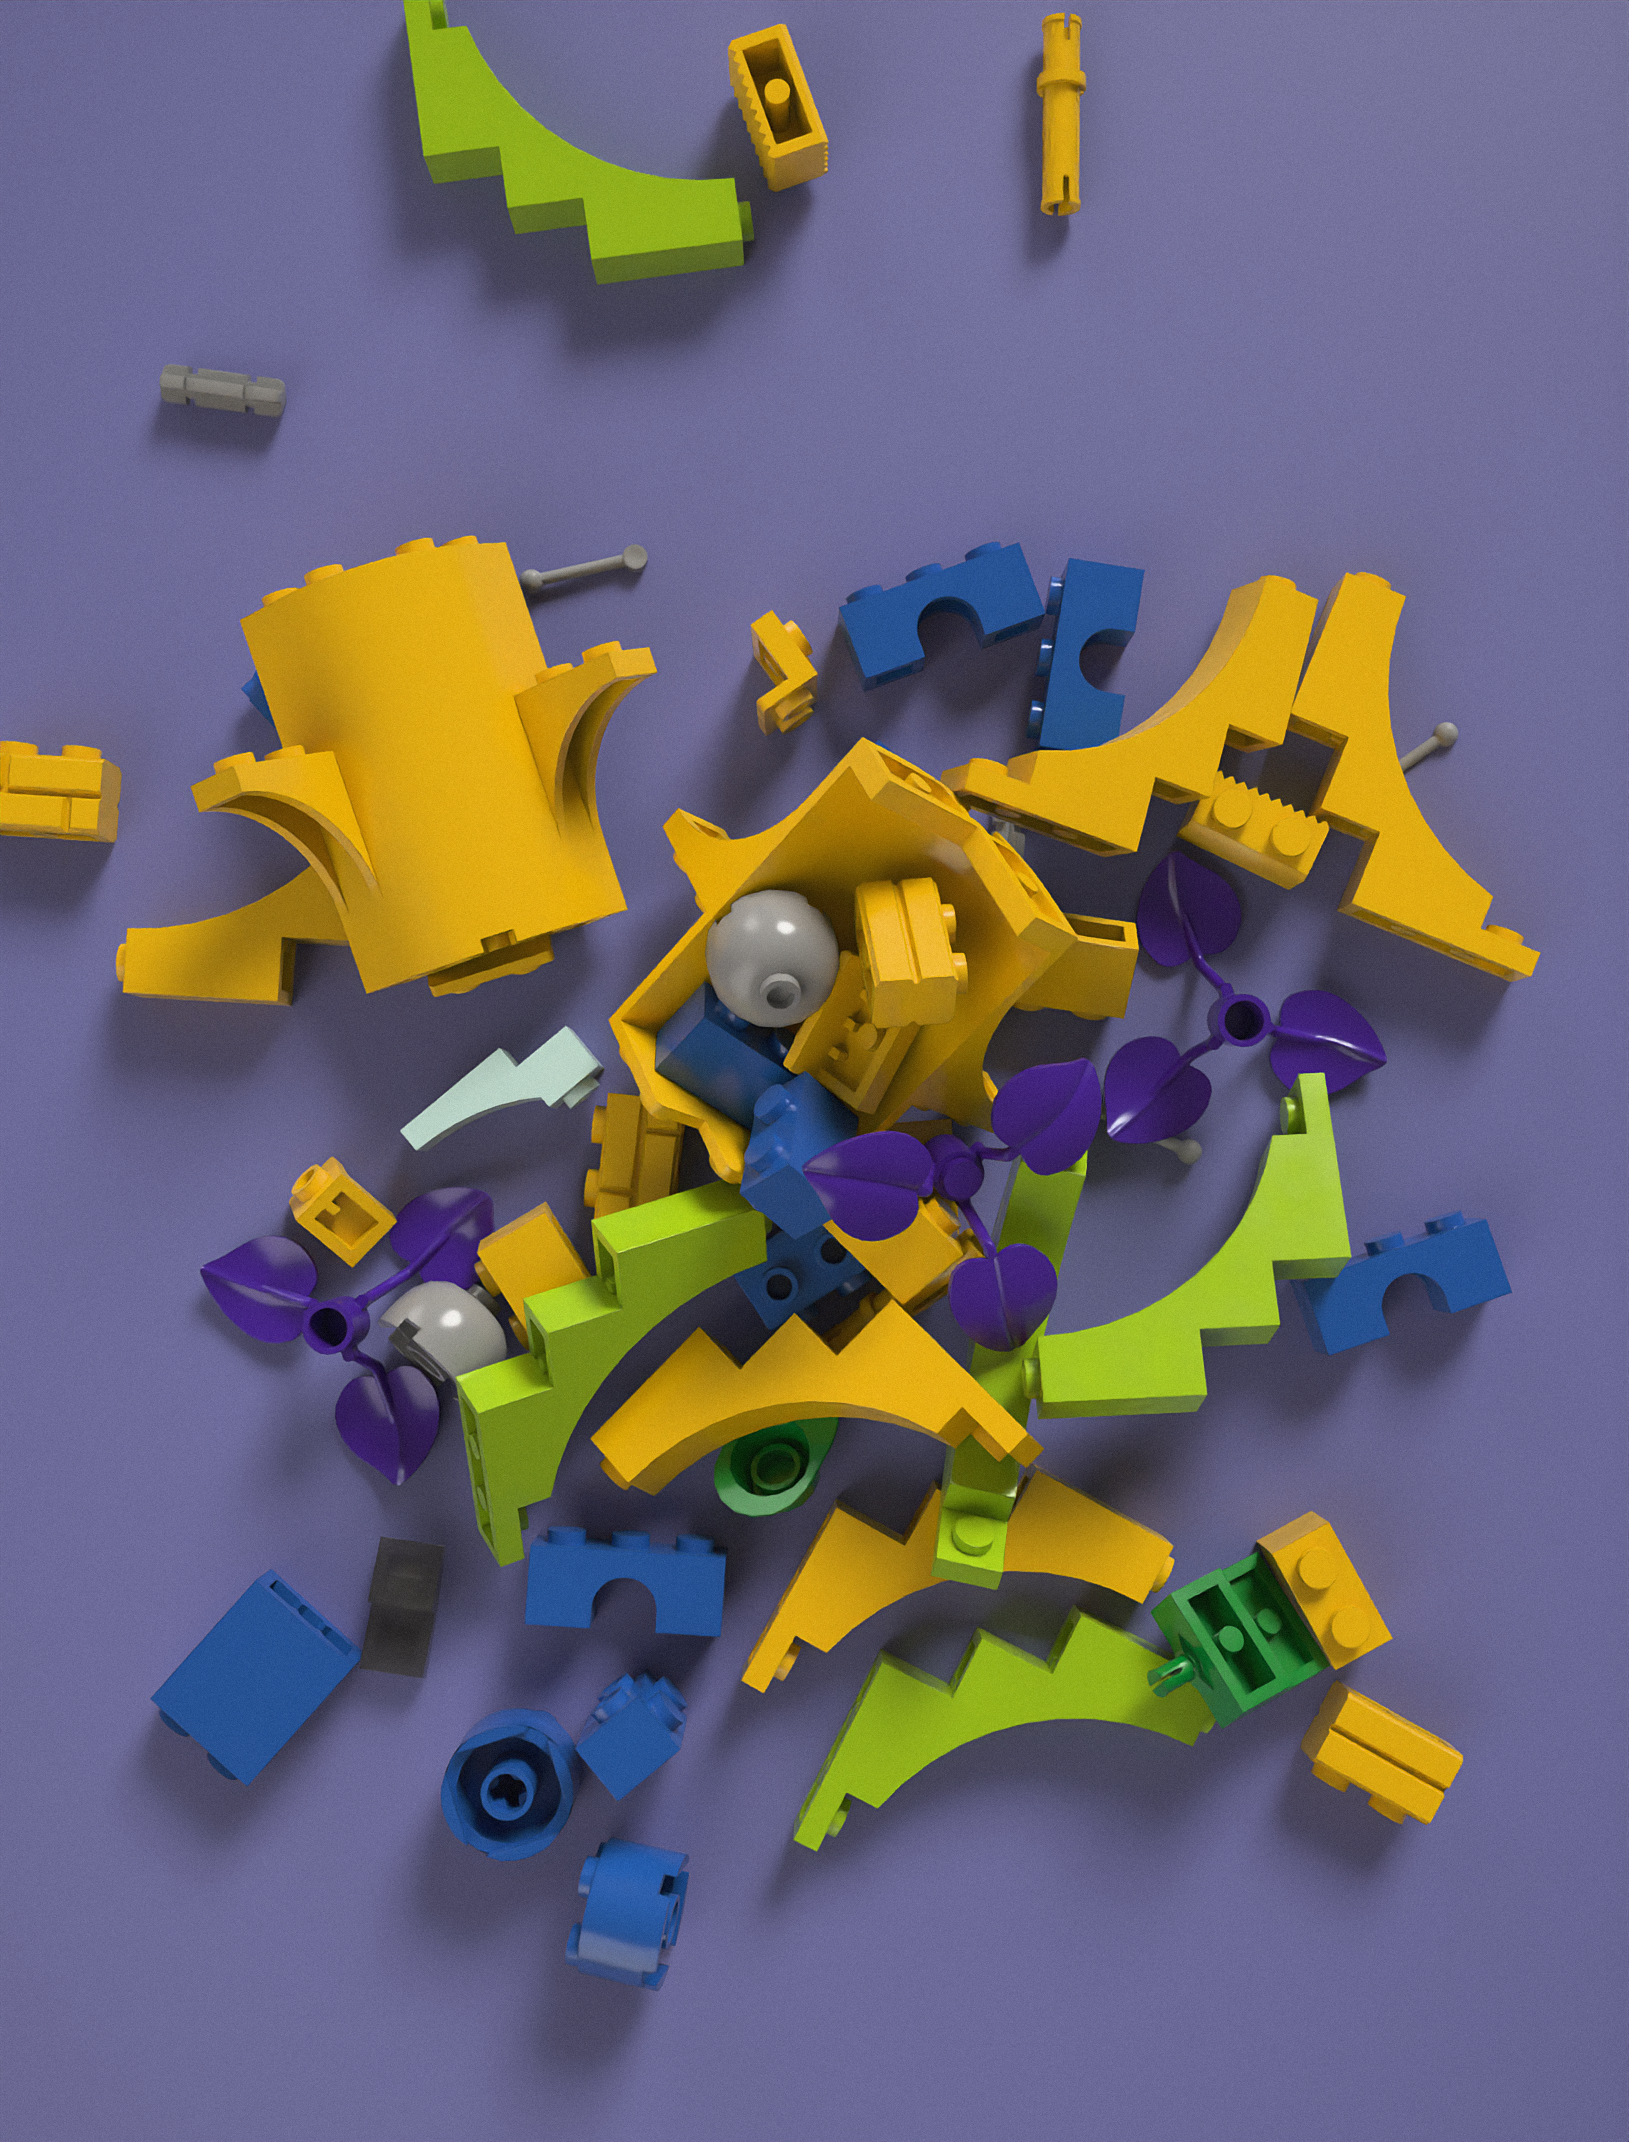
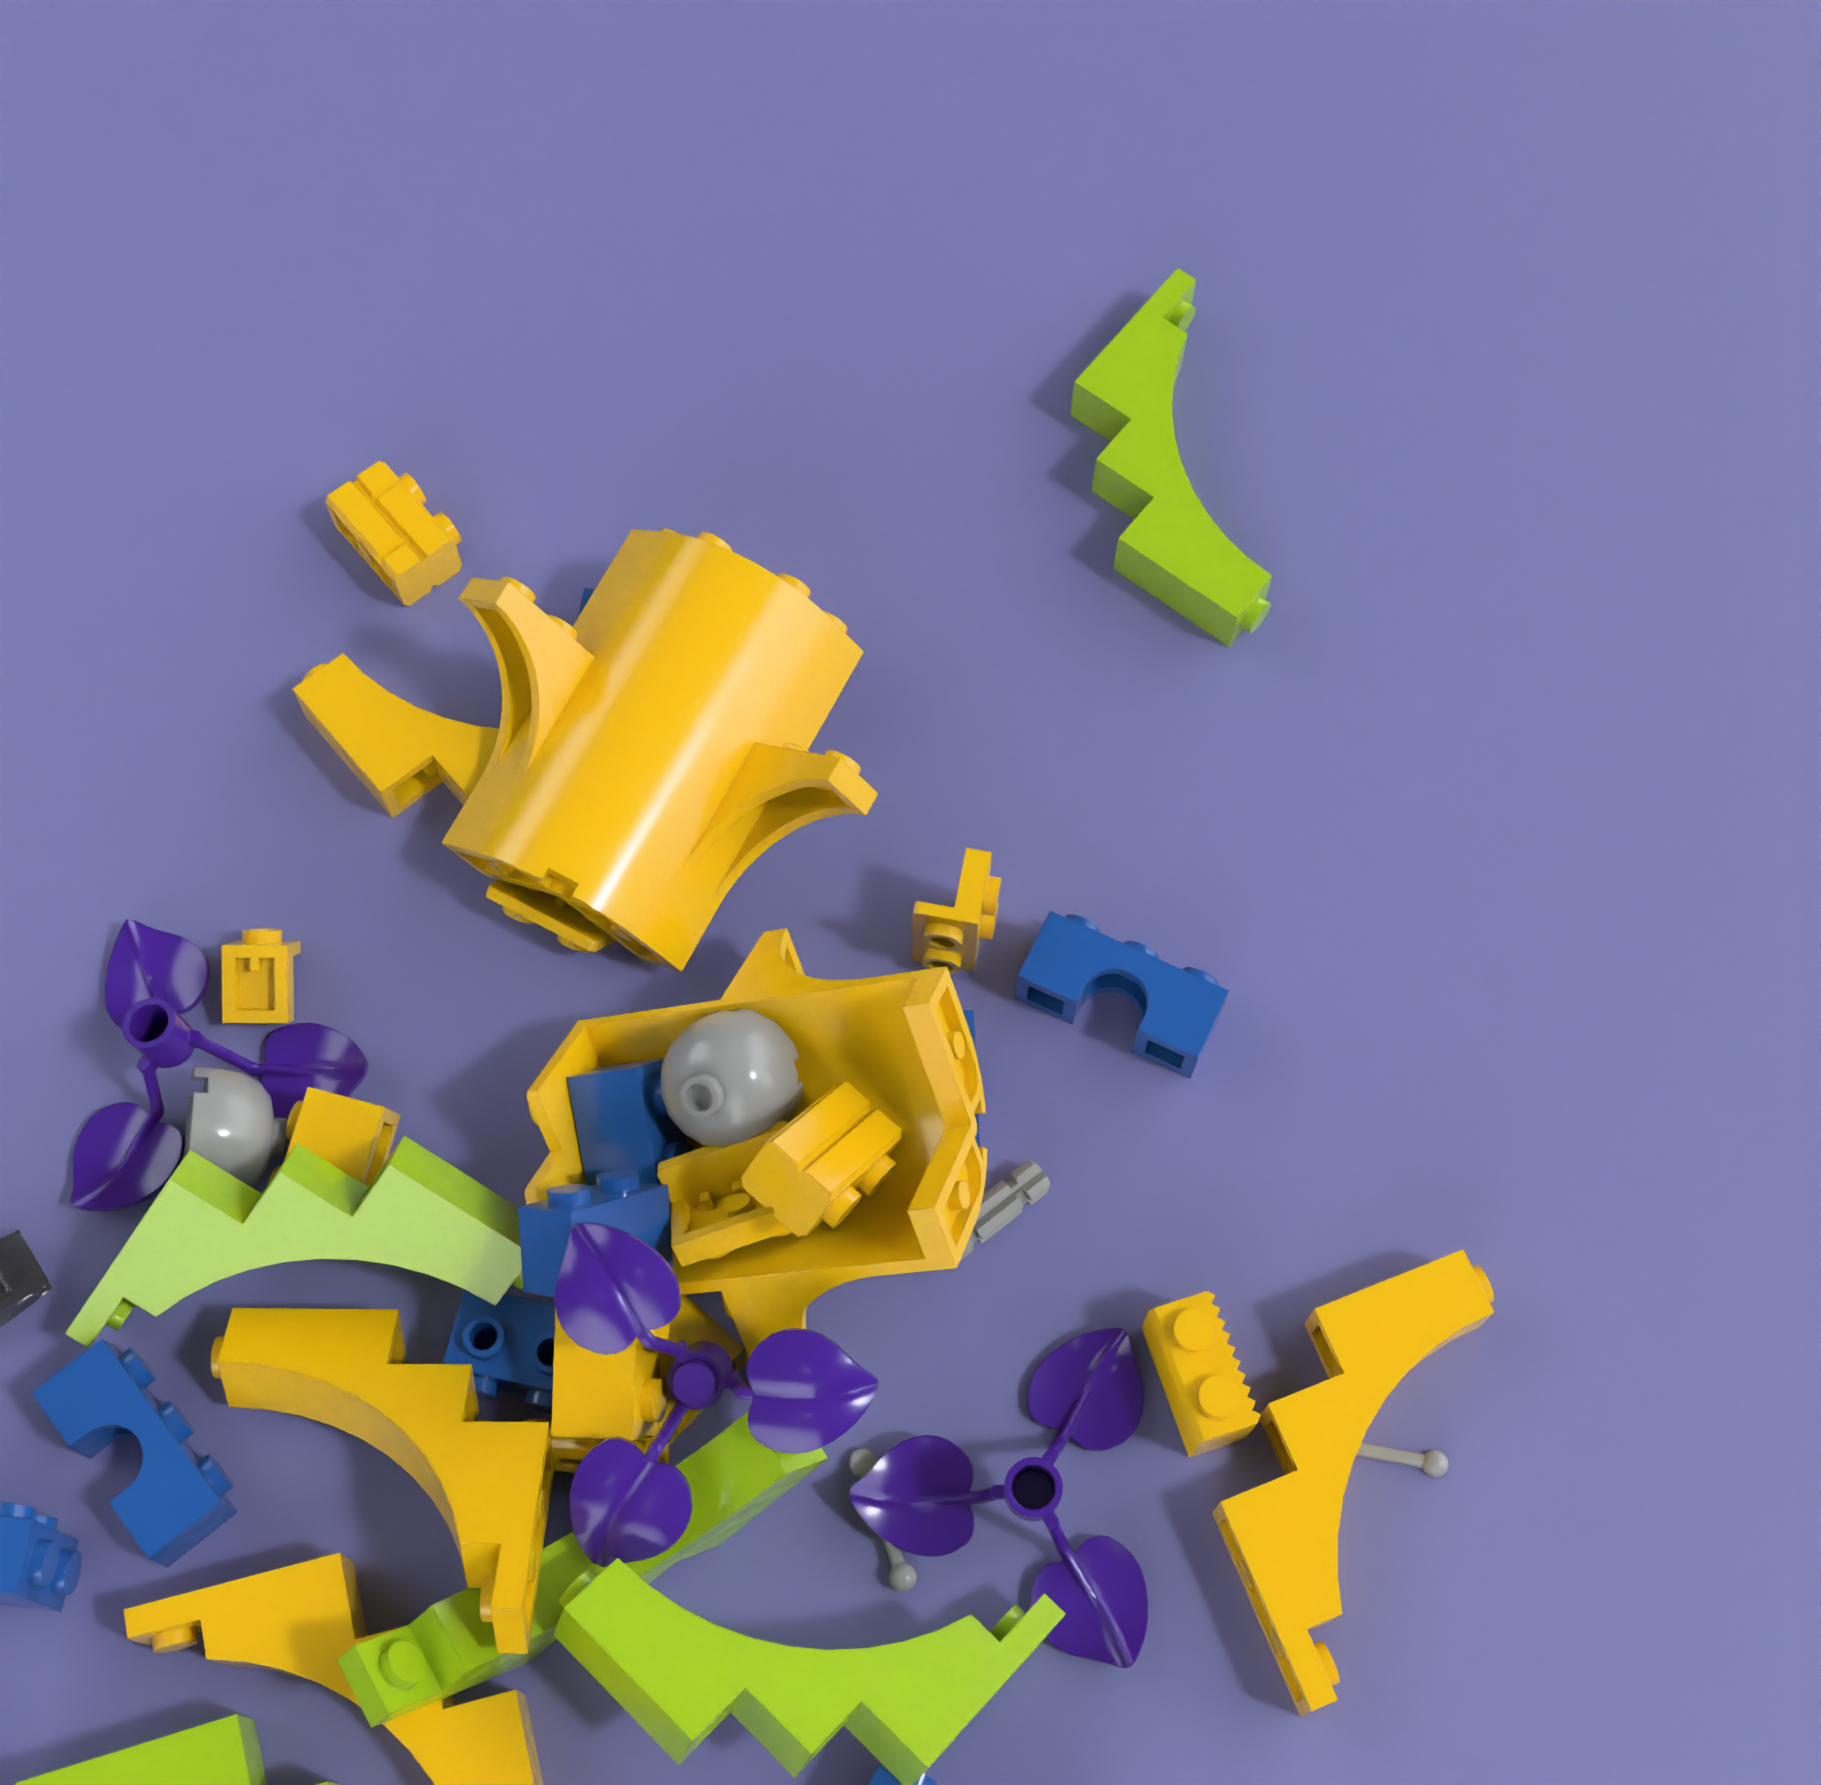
camera: 50 degrees right, 20 degrees down
(222, 390) = (792, 407): light grey axle -> none
(554, 1073) = (506, 1031): light aqua slope -> none
(633, 558) = (947, 756): light grey hinge -> none
(637, 1156) = (495, 1143): yellow brick -> none
(774, 1466) = (331, 1475): green piece -> none
(778, 107) = (1350, 563): yellow brick -> none
(1061, 87) = (1577, 732): yellow pin -> none
(1090, 607) = (1237, 1093): blue arch -> none
(1092, 974) = (954, 1331): yellow brick -> none
(1233, 698) = (1101, 1210): yellow arch -> none

